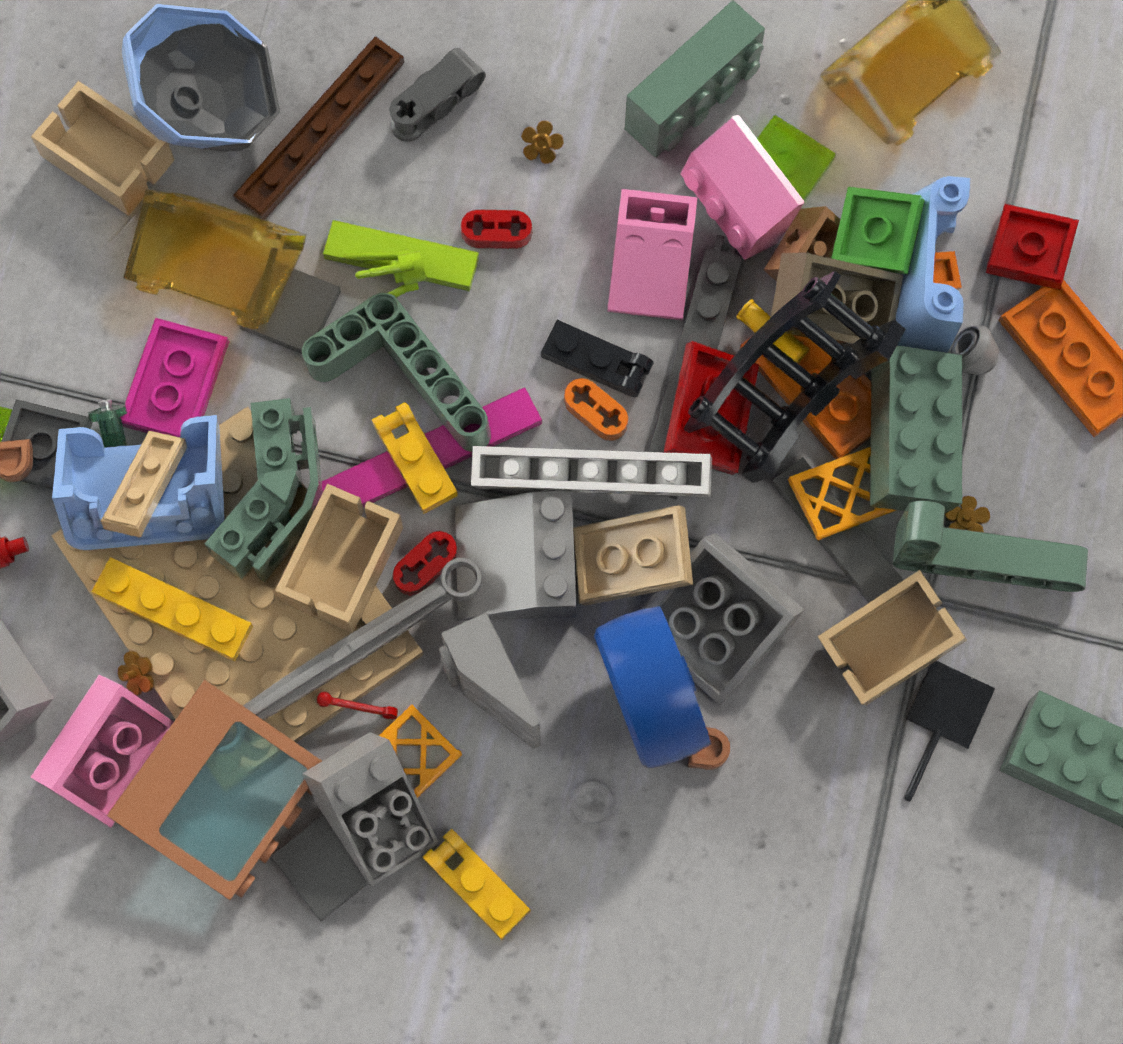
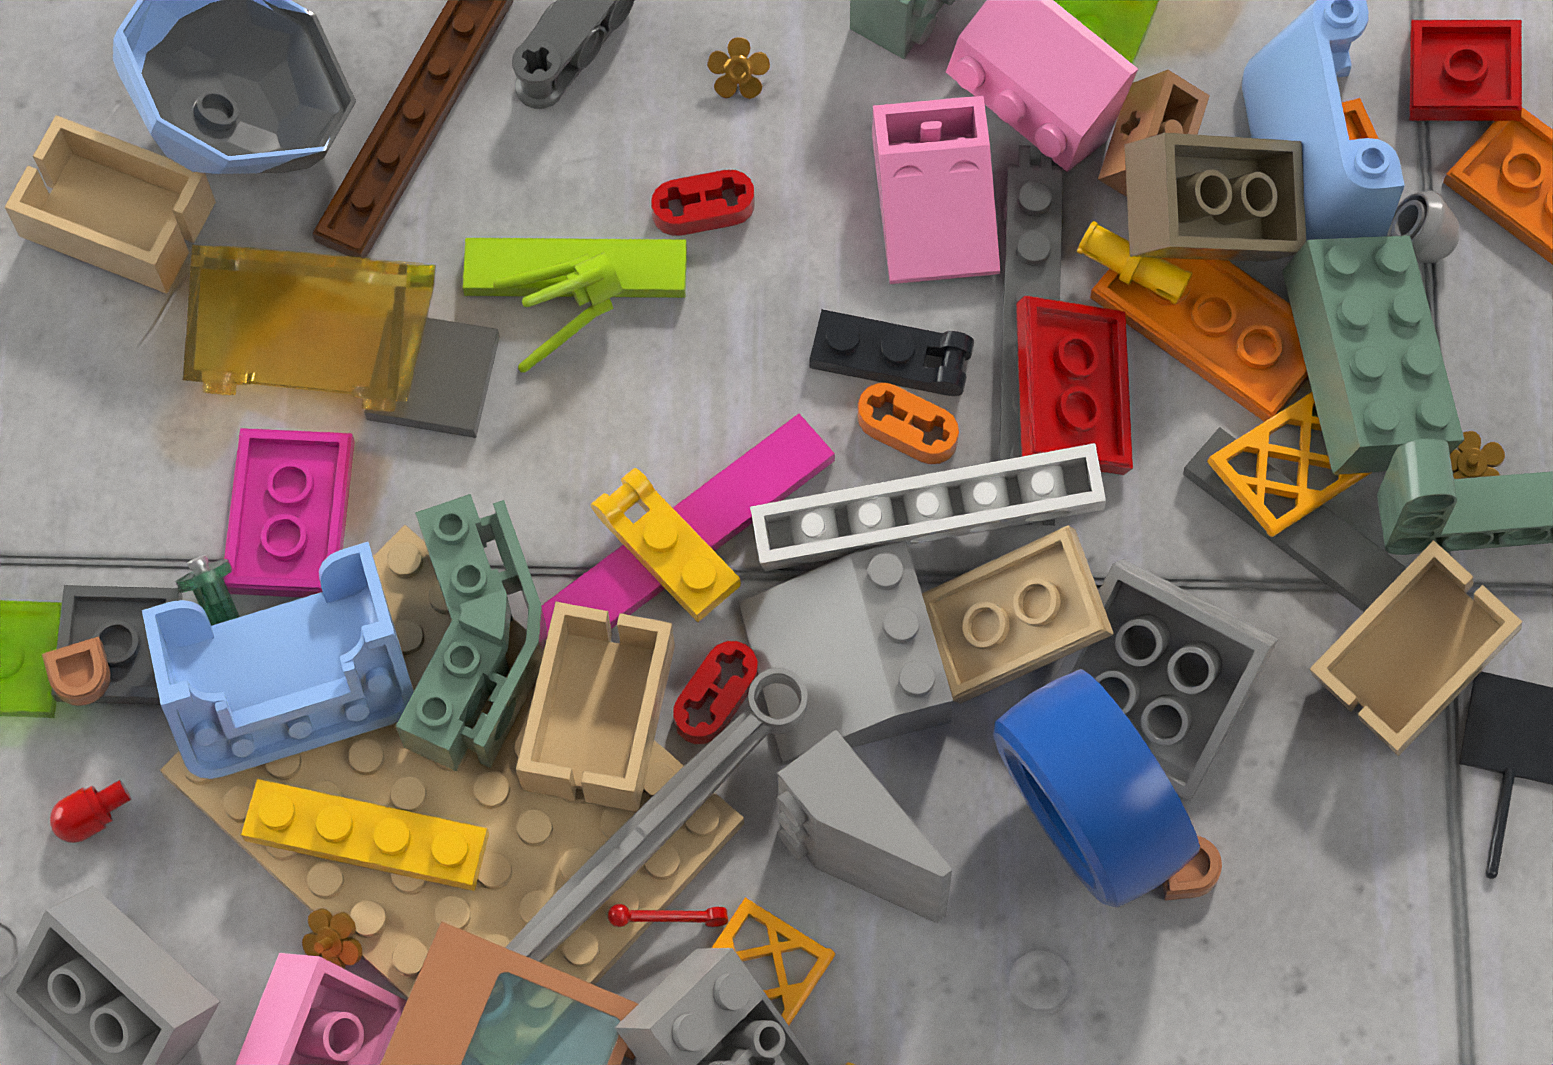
camera: 10 degrees left, 5 degrees down
(144, 484) = (285, 661): tan tile -> none
(411, 360) = (625, 409): sand green beam -> none
(817, 390) = (1220, 326): black fence -> none
(878, 229) = (1251, 83): bright green plate -> none

